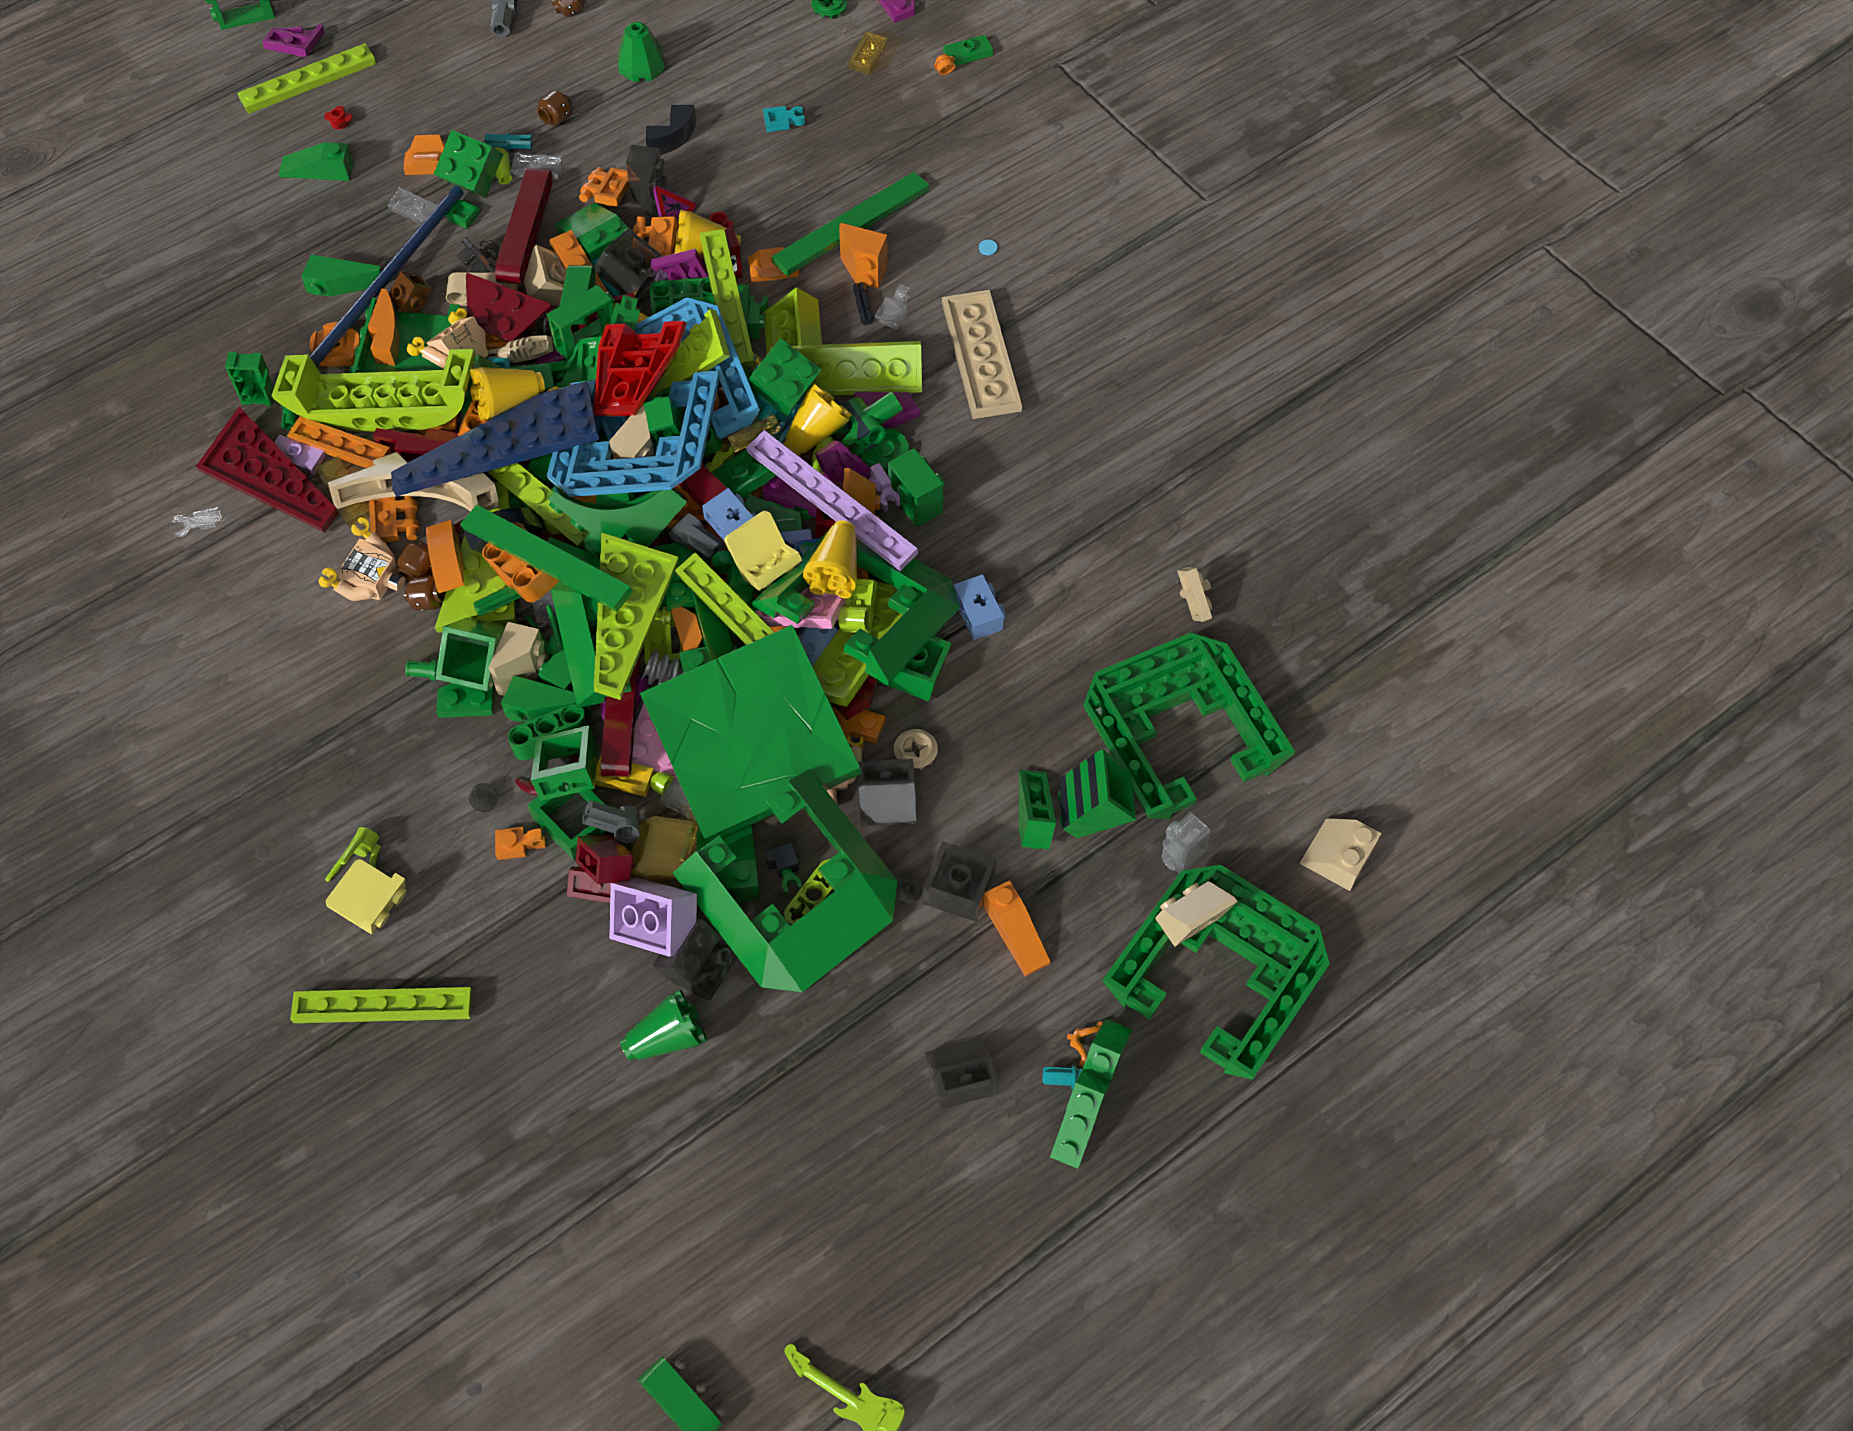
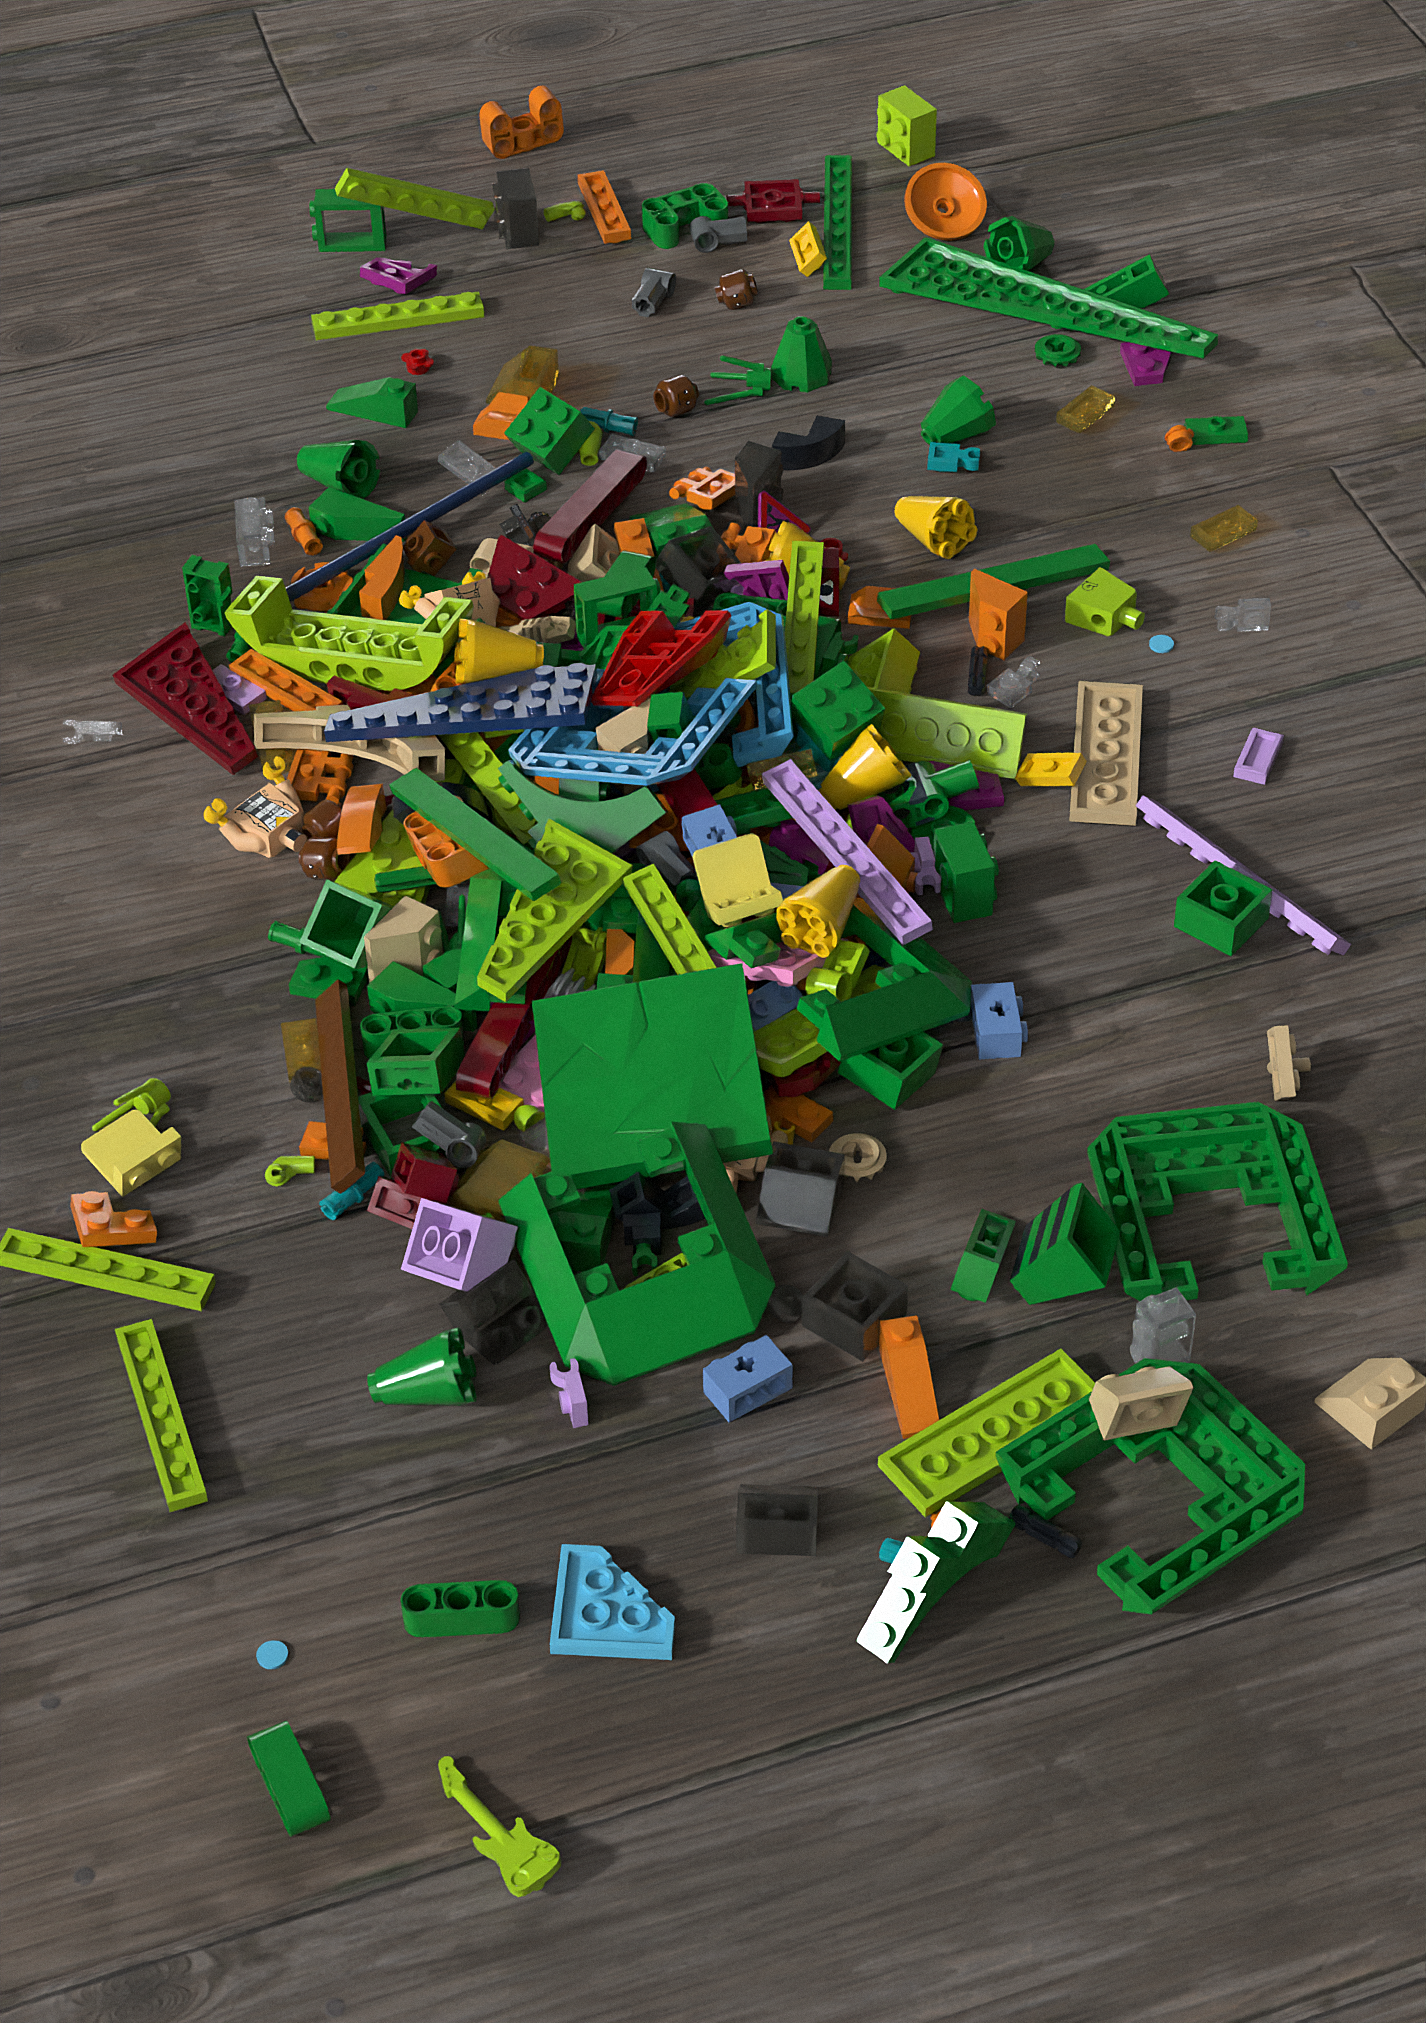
camera: 20 degrees right, 15 degrees down
(262, 308) = (254, 531): none -> clear brick
(302, 296) = (303, 531): none -> orange pin
(313, 232) = (341, 465): none -> green cone
(368, 969) = (102, 1226): none -> orange plate
(431, 115) = (527, 372): none -> clear yellow slope
(465, 765) = (301, 1045): none -> clear yellow plate
(472, 1120) = (161, 1416): none -> lime plate
(492, 874) = (288, 1166): none -> lime arm
(510, 797) = (339, 1087): none -> reddish brown tile
(549, 881) = (337, 1203): none -> teal axle
(610, 77) = (758, 378): none -> green plant
(628, 1297) = (272, 1654): none -> medium azure piece
(746, 1231) = (443, 1600): none -> green beam
(771, 833) = (640, 1195): none -> black brick
(776, 80) = (958, 413): none -> green cone
(778, 1016) = (573, 1397): none -> lavender plate
(792, 180) = (938, 522): none -> yellow cone
(863, 1187) = (606, 1610): none -> medium azure plate
(897, 976) = (747, 1378): none -> medium blue brick
(938, 225) = (1103, 604): none -> lime torso
(947, 380) = (1050, 769): none -> yellow plate
(1002, 137) = (1224, 528): none -> clear yellow plate
(1045, 210) = (1247, 616): none -> clear plate
(1084, 958) = (962, 1446): none -> lime plate
(1089, 329) = (1258, 756): none -> lavender tile
(1110, 470) = (1222, 908): none -> green brick
(1121, 442) = (1206, 850): none -> lavender plate
(1152, 1026) = (1045, 1531): none -> black axle

